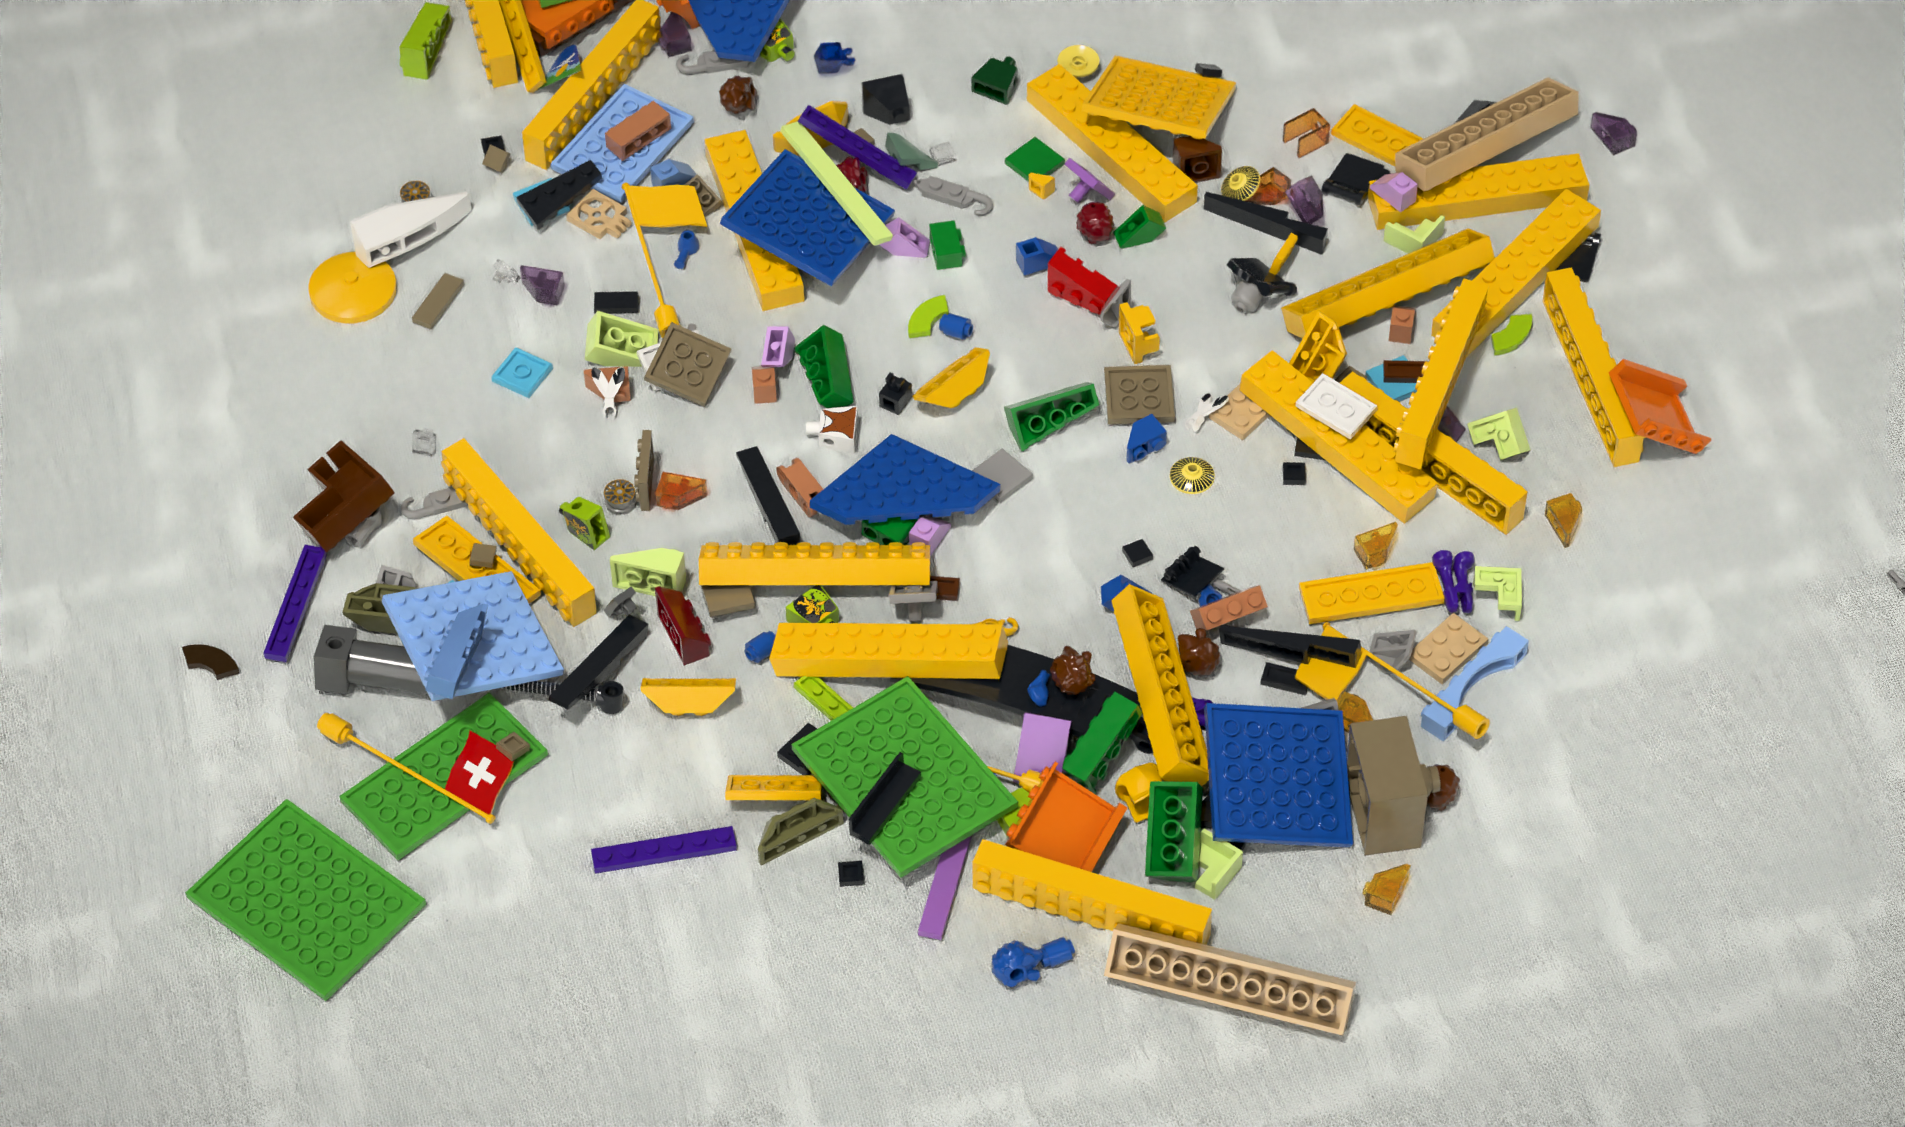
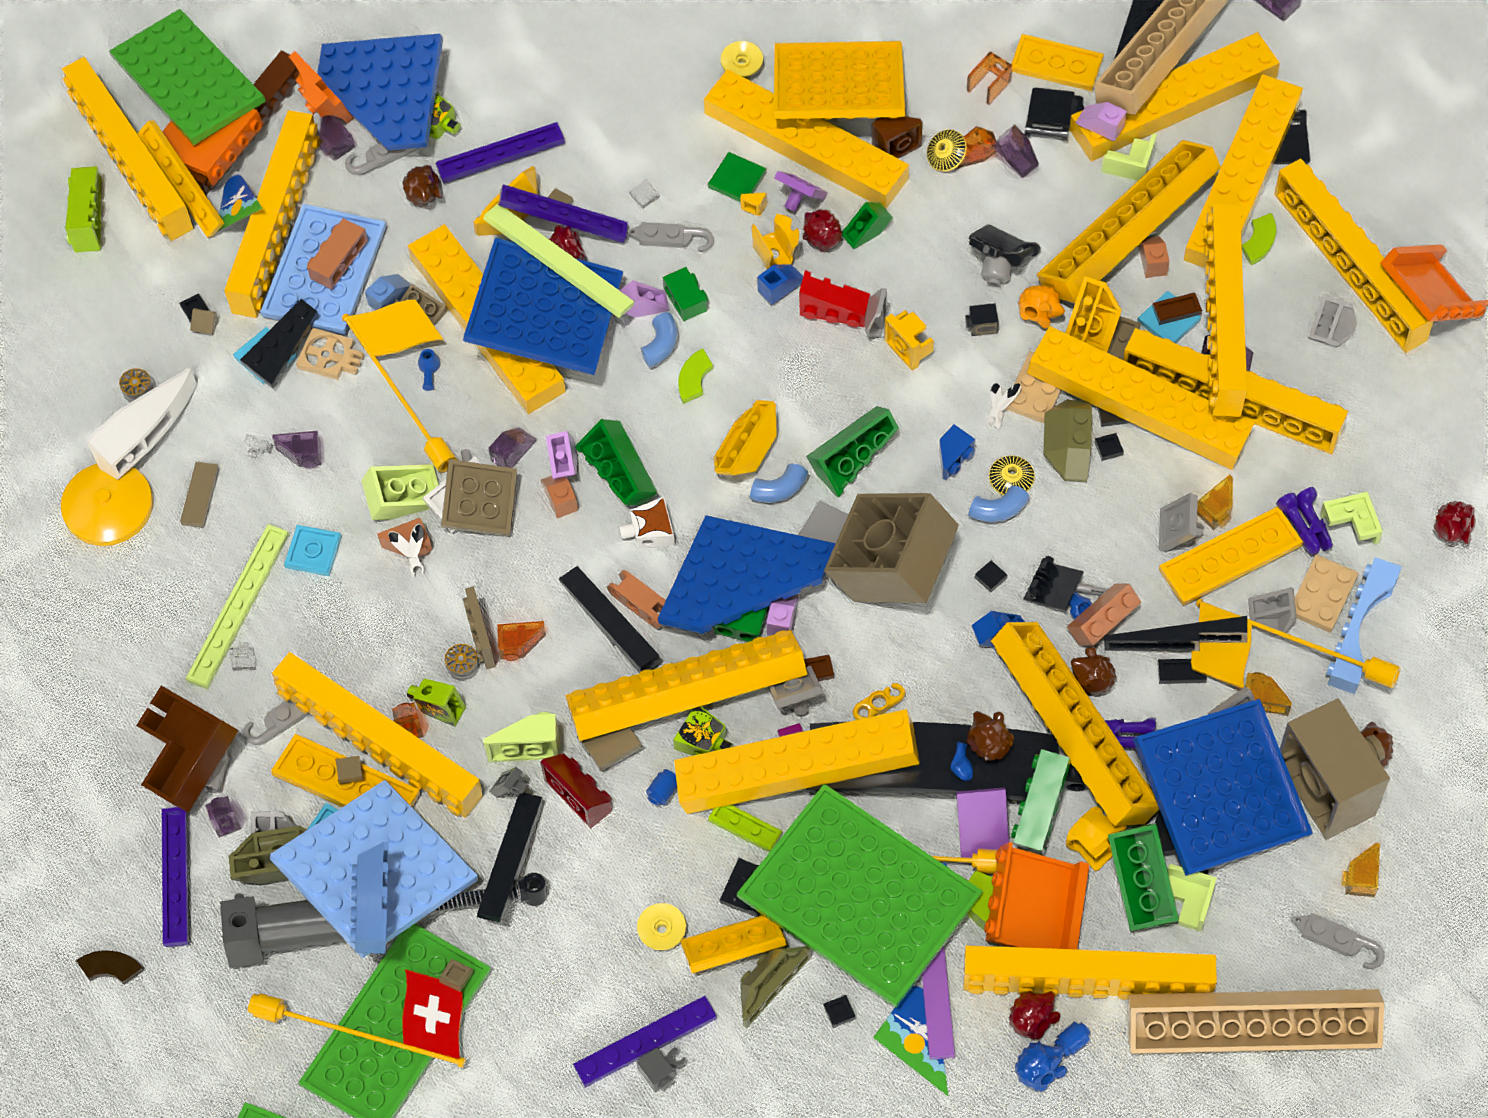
camera: 15 degrees left, 10 degrees up
(356, 565) = (222, 816): none -> clear purple slope
(436, 400) = (237, 607): none -> yellowish green tile
(554, 527) = (407, 717): none -> clear orange slope
(616, 302) = (379, 446): black tile -> none
(666, 873) = (658, 1069): none -> dark grey brick
(688, 695) = (610, 861): yellow wedge -> none
(714, 751) = (661, 916): none -> light yellow dish
(734, 331) = (510, 447): none -> clear purple slope
(814, 85) = (500, 152): none -> dark purple plate
(830, 57) = (500, 120): clear blue brick -> none
(883, 800) = (853, 932): black panel -> none
(886, 99) = (571, 152): black slope -> none
(895, 394) = (694, 471): black brick -> none
(904, 913) = (906, 1037): none -> sticker
(907, 153) = (610, 203): sand green slope -> none
(909, 280) = (663, 342): none -> medium blue cylinder
(956, 326) = (726, 379): blue brick -> none
(969, 428) = (780, 488): none -> medium blue cylinder
(996, 79) = (669, 100): dark green torso -> none
(1027, 920) = (1033, 1014): none -> dark red animal
(1047, 496) = (891, 547): none -> dark tan brick
(1052, 222) = (782, 240): none -> yellow piece
(1138, 392) = (930, 403): dark tan plate -> none
(1168, 497) = (1000, 508): none -> medium blue cylinder
(1208, 70) = (871, 35): black tile -> none
(1216, 335) = (982, 319): none -> black brick
(1256, 457) = (1069, 439): none -> olive wedge
(1267, 220) = (987, 182): black slope -> none
(1275, 334) = (1040, 305): none -> light orange animal
(1283, 254) = (1015, 215): yellow tile -> none
(1331, 551) = (1179, 522): none -> light grey tile
(1336, 406) = (1134, 370): white tile -> none
(1340, 937) = (1337, 937): none -> light grey plate
(1504, 429) = (1293, 344): yellowish green panel -> none
(1552, 420) = (1333, 321): none -> light grey slope
(1564, 516) = (1382, 422): clear yellow slope -> none
(1597, 618) = (1455, 522): none -> dark red animal

